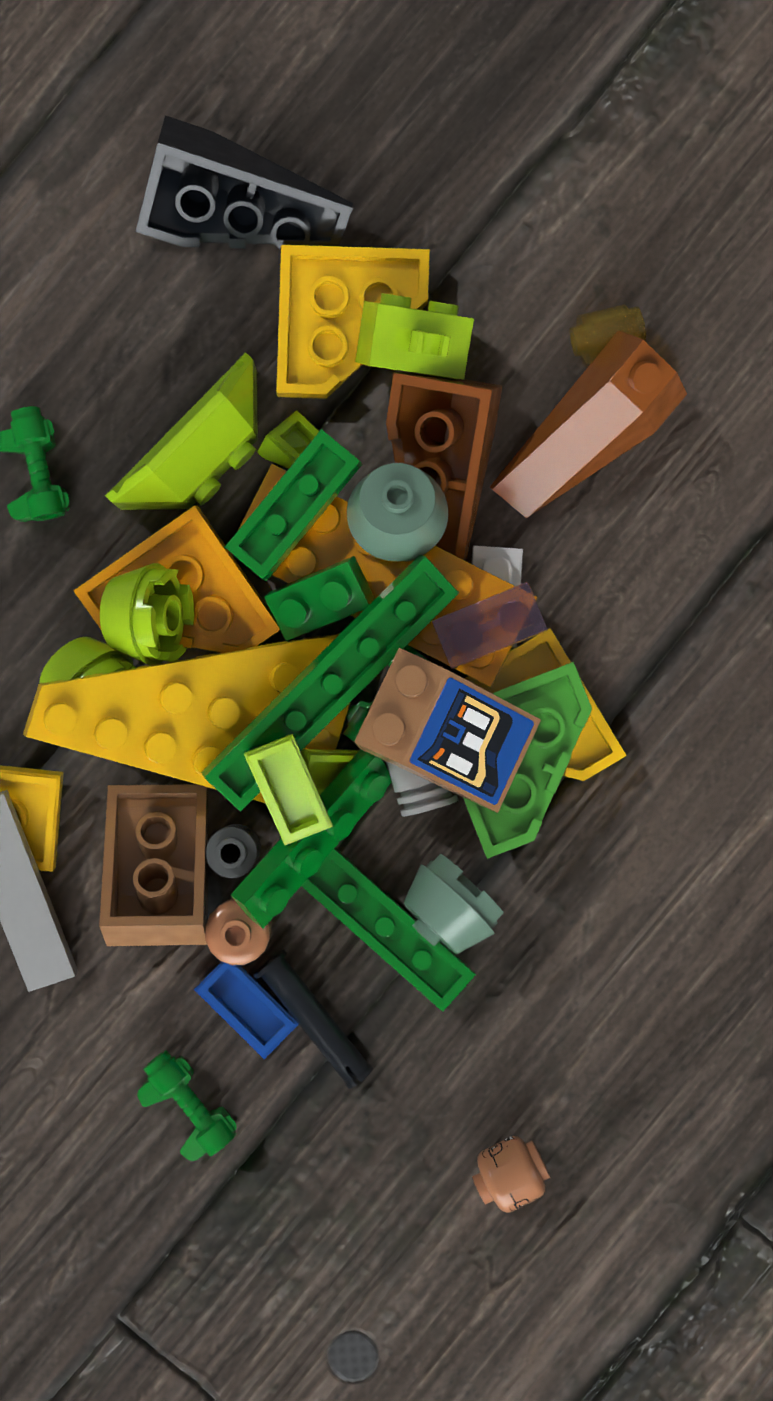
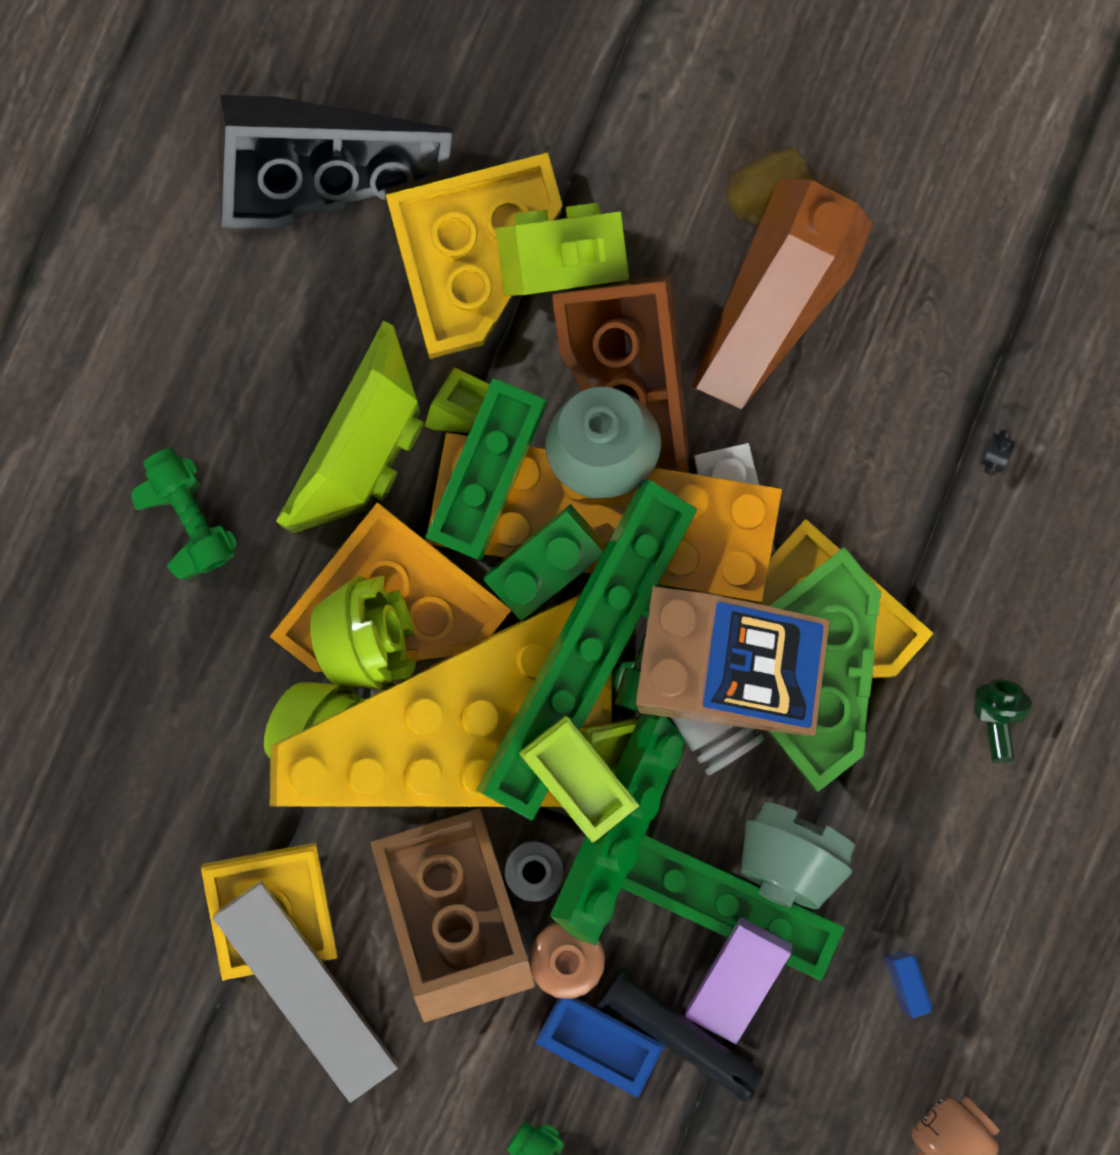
camera: 20 degrees left, 5 degrees down
(375, 990) = (738, 980): none -> tile
(489, 625) = (742, 534): plate -> none
(513, 1036) = (908, 984): none -> blue tile
(661, 835) = (999, 705): none -> dark green plate
(729, 620) = (997, 452): none -> black piece

